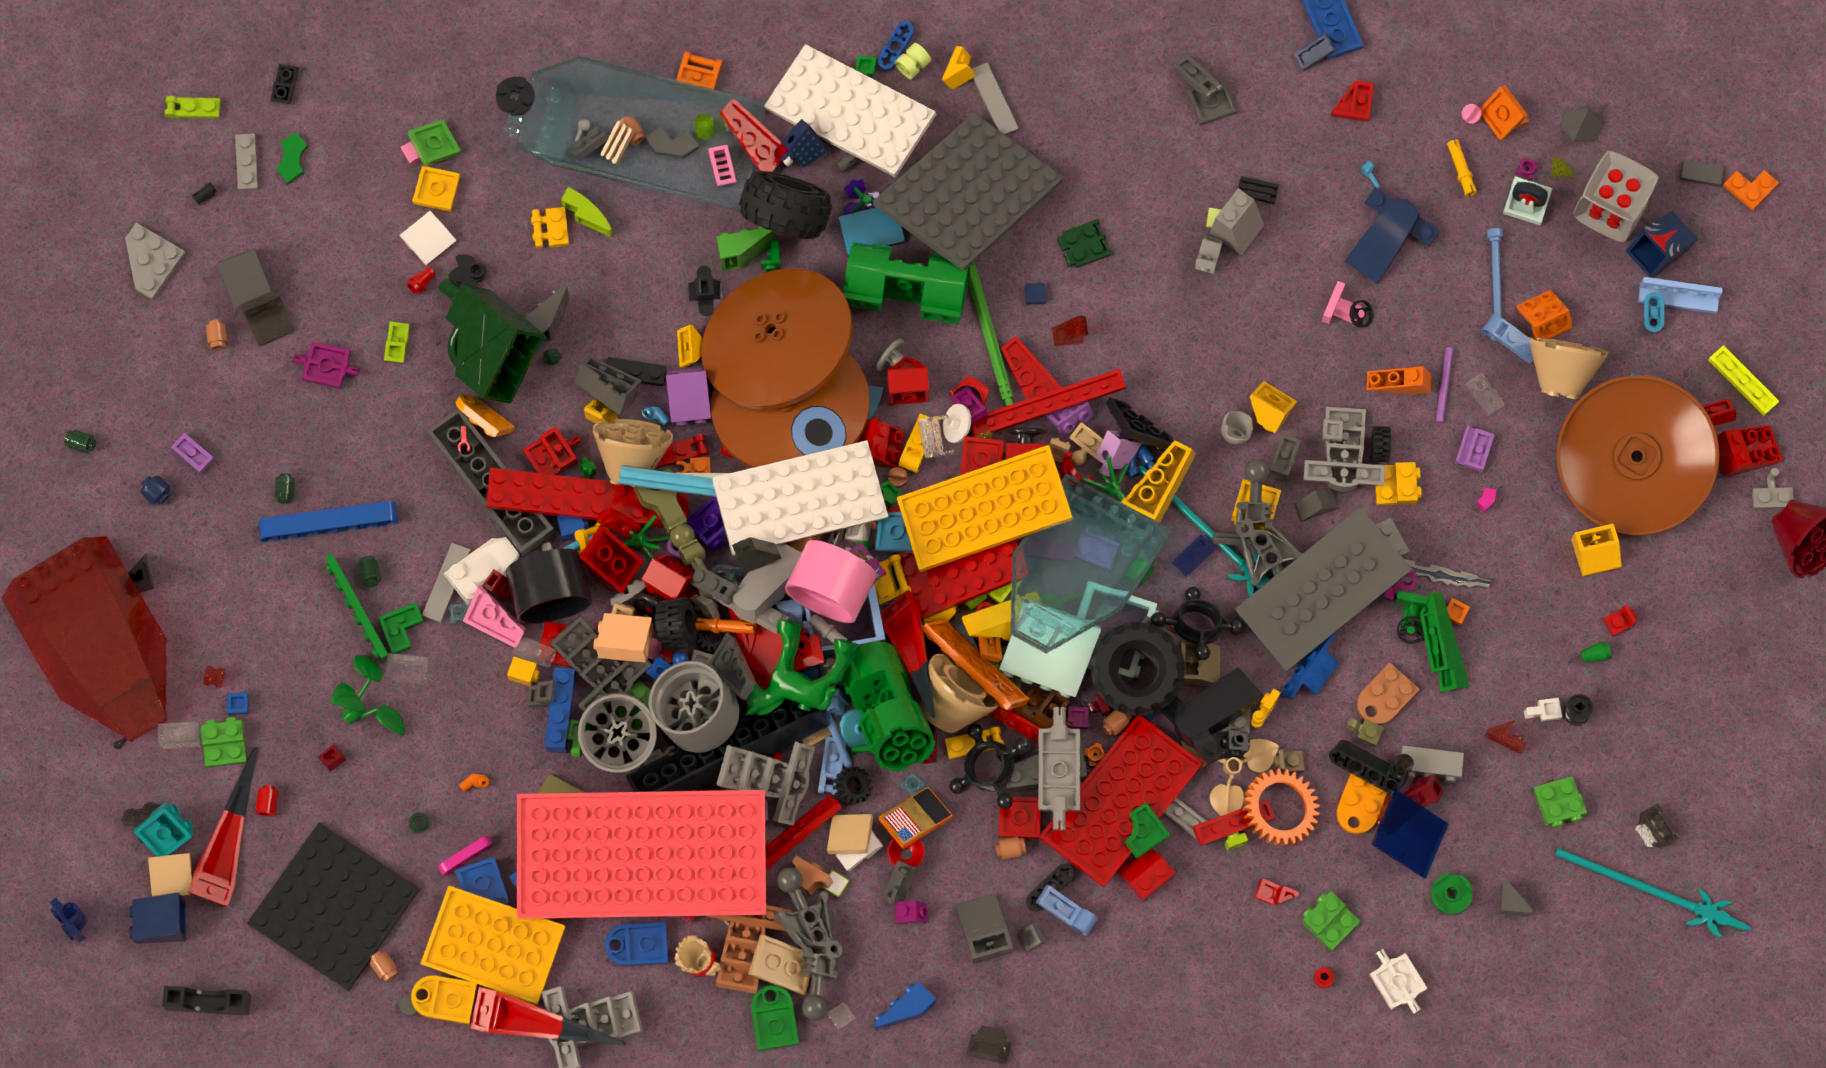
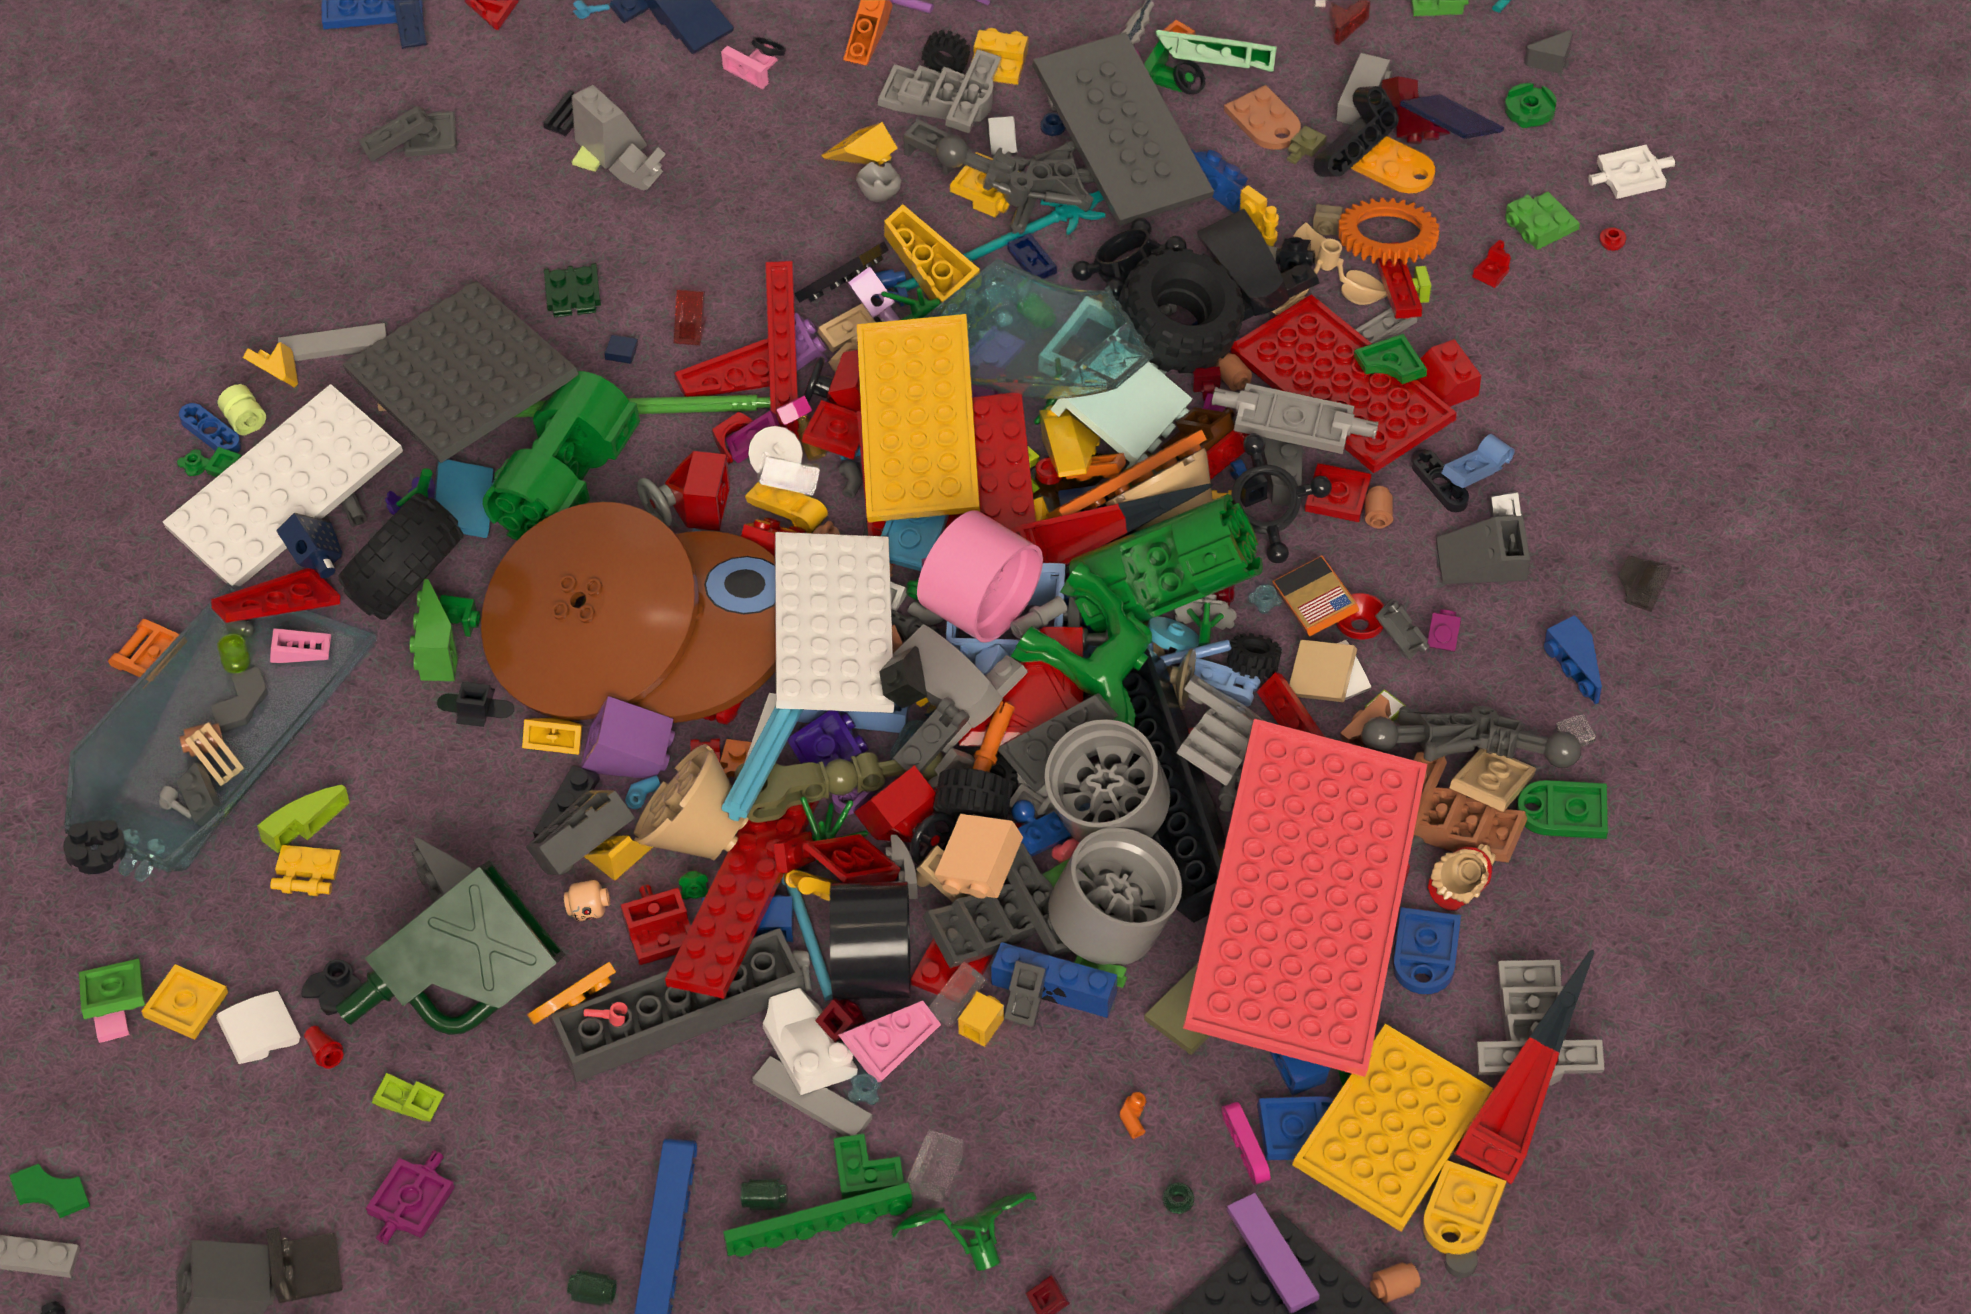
camera: 75 degrees left, 20 degrees down
(384, 886) = (1272, 1253): none -> medium lavender tile
(561, 405) = (586, 900): none -> light nougat head
(815, 739) = (1182, 675): none -> dark tan dish
(863, 41) = (190, 467): none -> green plate
(991, 423) = (794, 410): none -> piece

